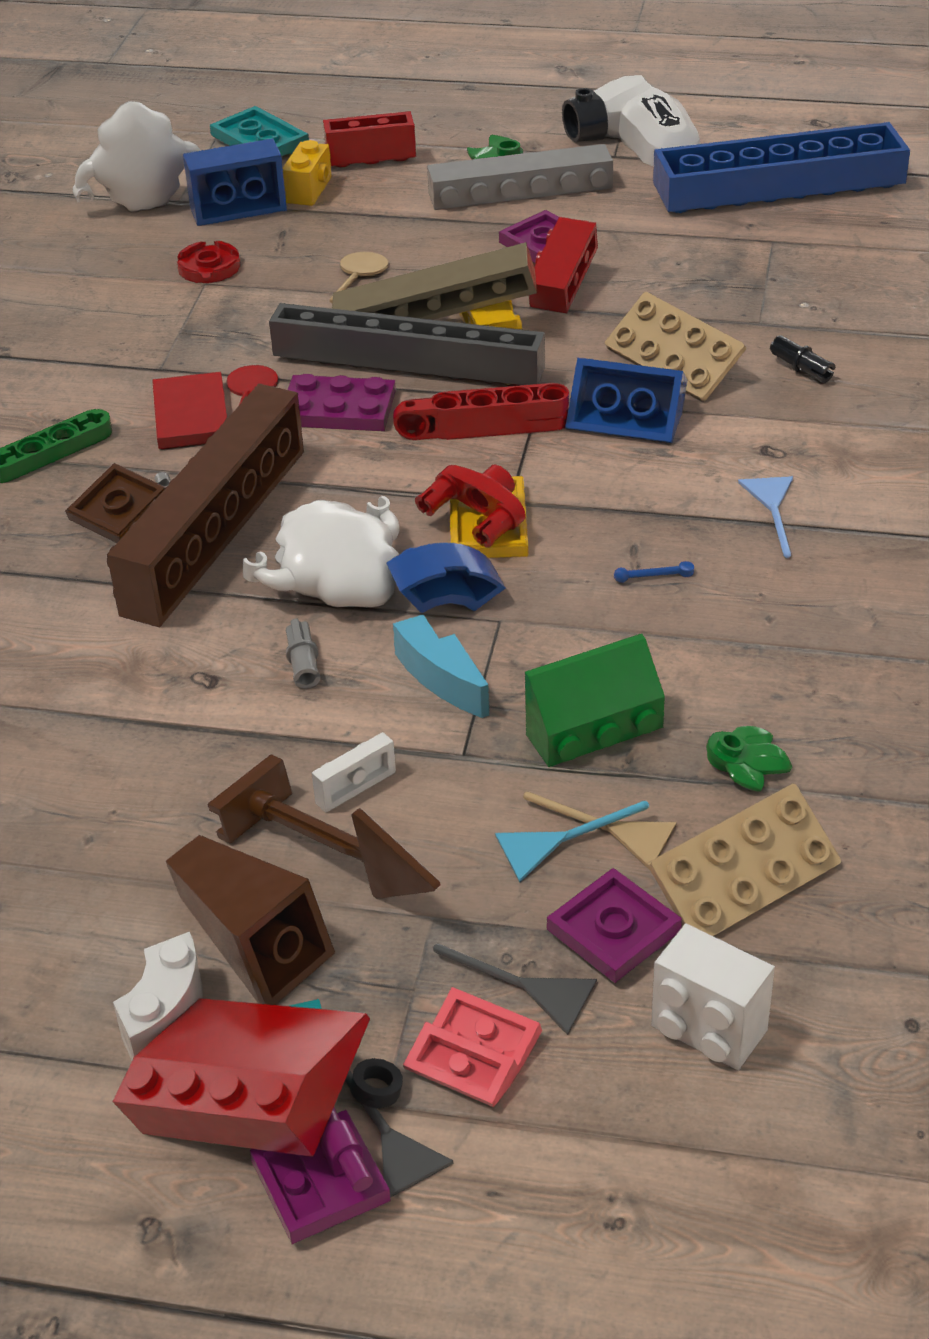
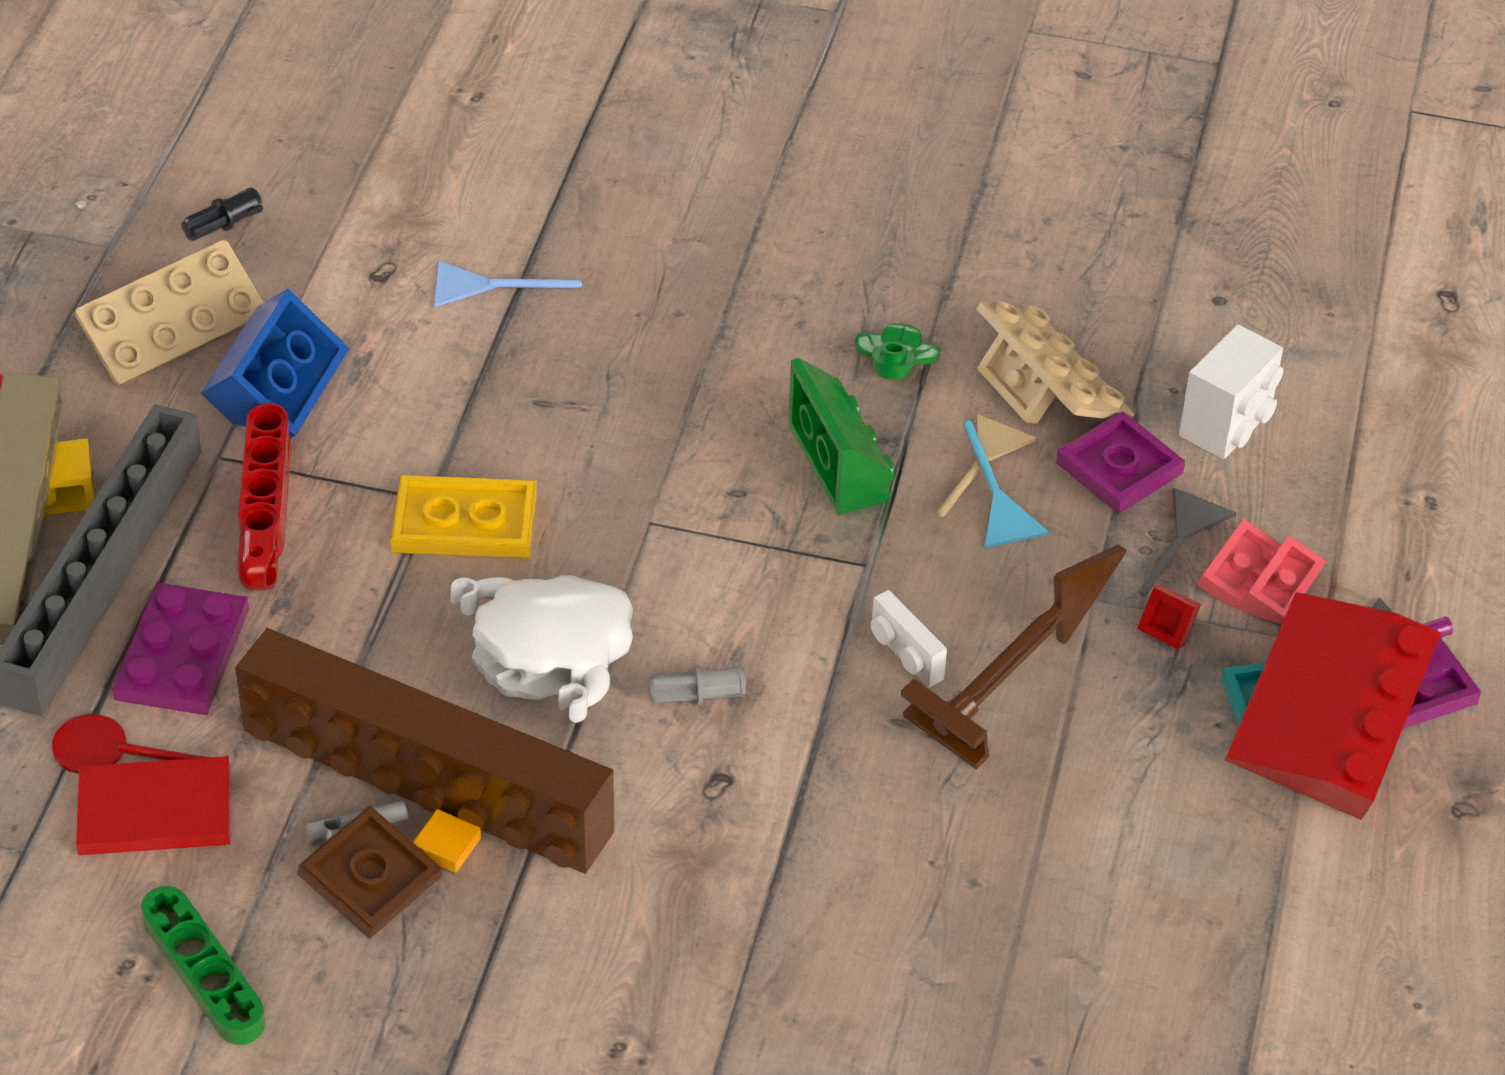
camera: 90 degrees left, 5 degrees up
(164, 993) = (1229, 786): white brick -> none
(254, 915) = (1118, 717): reddish brown slope -> none
(394, 961) = (1169, 616): none -> red tile
(441, 665) = (744, 561): medium azure slope -> none
(445, 575) = (605, 543): blue brick -> none
(484, 492) = (460, 493): red connector -> none
(685, 569) = (589, 364): blue hinge -> none

